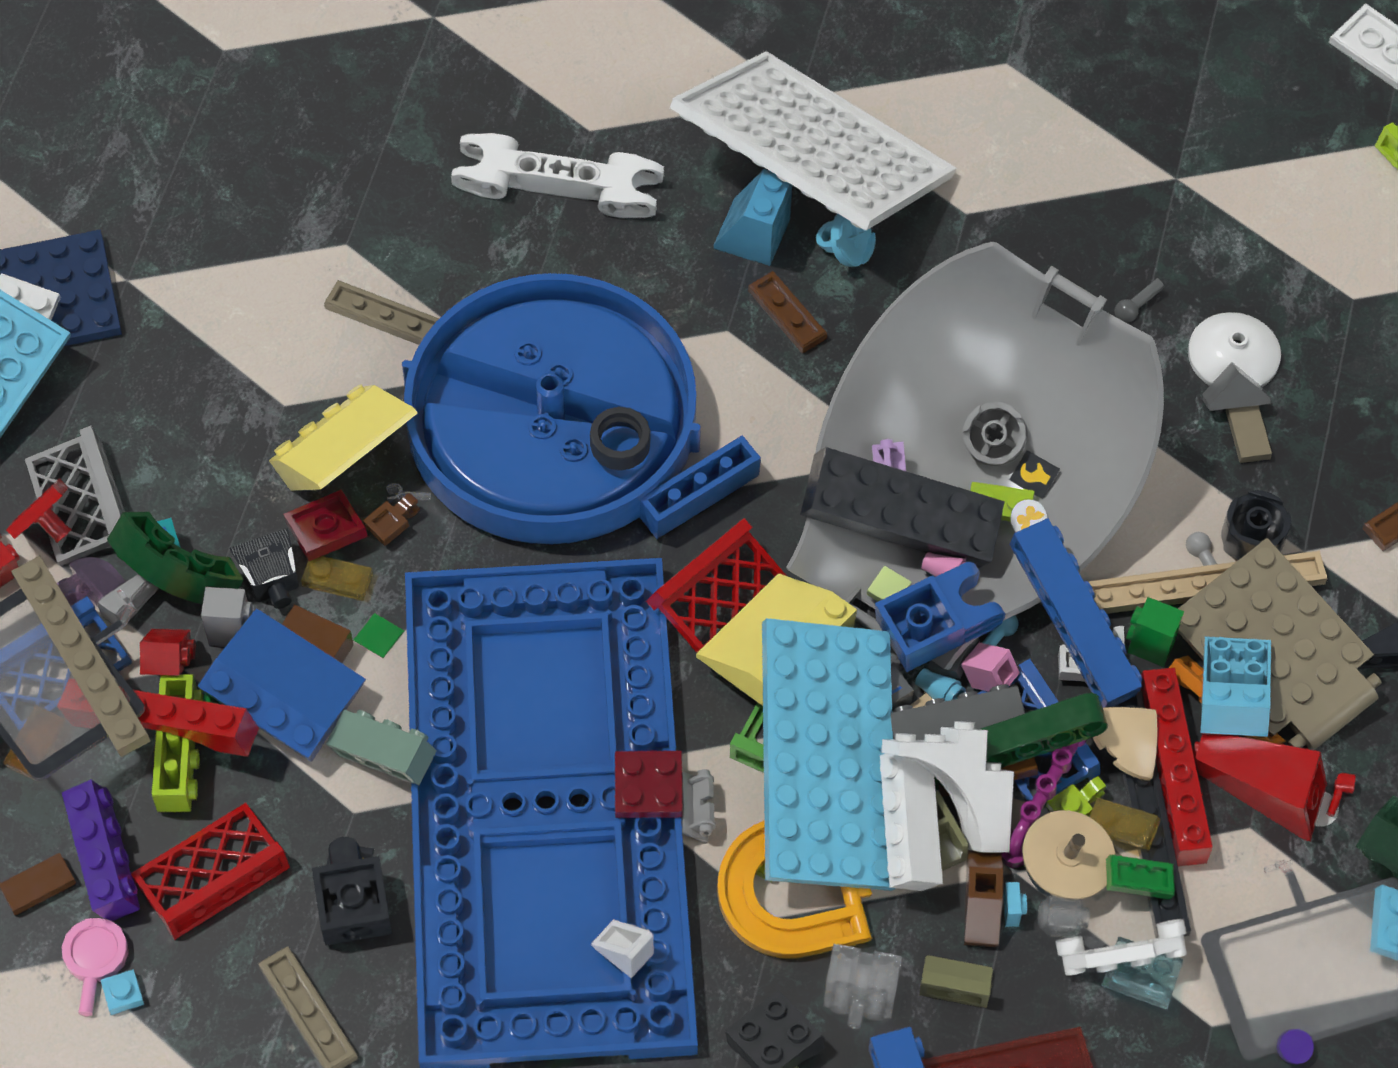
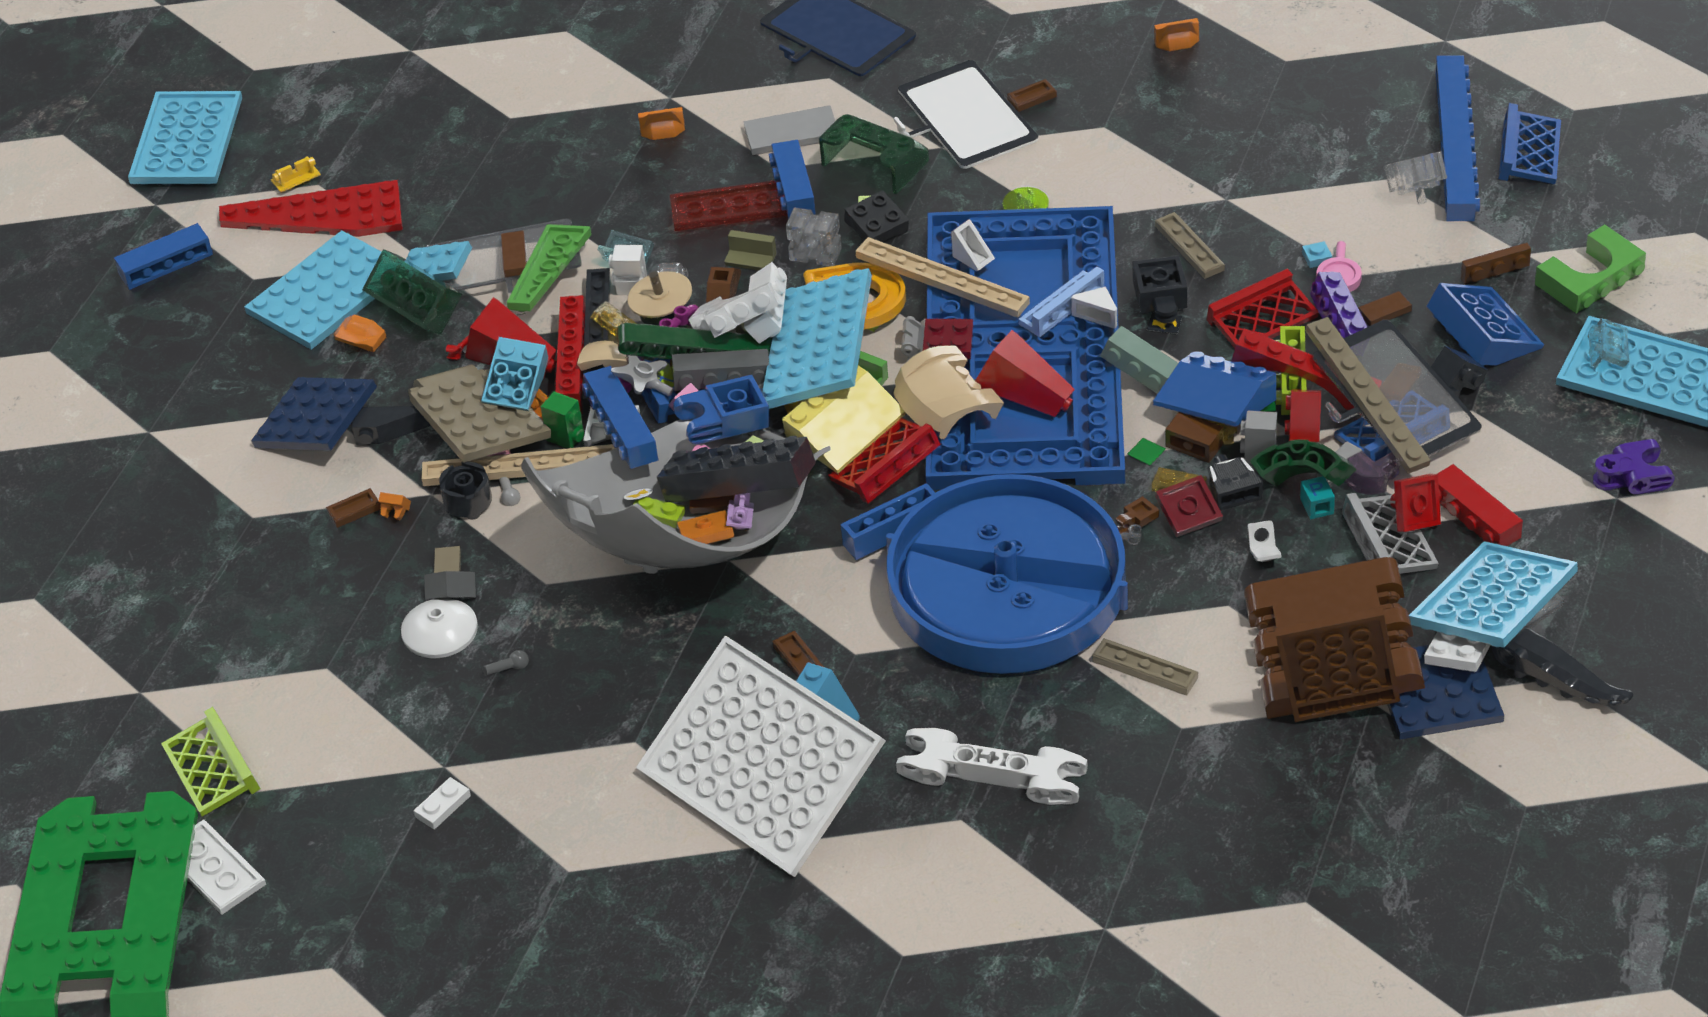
camera: 170 degrees left, 15 degrees down
(161, 297) = (1333, 640): none -> reddish brown bracket
(233, 466) = (1263, 550): none -> white bracket
(340, 437) = (1173, 540): light yellow slope -> none
(441, 832) = (1095, 306): none -> white slope
(480, 843) = (1059, 303): none -> light blue fence
(546, 707) = (1025, 377): none -> red slope
(620, 417) = (950, 530): black tyre -> none
(645, 672) = (940, 390): none -> tan piece
(666, 893) = (943, 277): none -> tan plate
(936, 455) = (707, 528): none -> orange plate
(1014, 904) = (700, 284): medium azure plate -> none
(1061, 681) = (643, 375): none -> light grey animal
(1125, 910) = (627, 266): none -> white brick
(1139, 953) = (652, 243): white plate -> none
(1140, 876) = (614, 285): green plate -> none
(1164, 129) = (442, 803): none -> white plate
(1245, 936) = (549, 258): none -> bright green wing
(1295, 1046) = (536, 219): dark purple tile -> none
(1306, 954) = (513, 253): none -> reddish brown tile
(1344, 518) = (390, 501): none -> orange tile

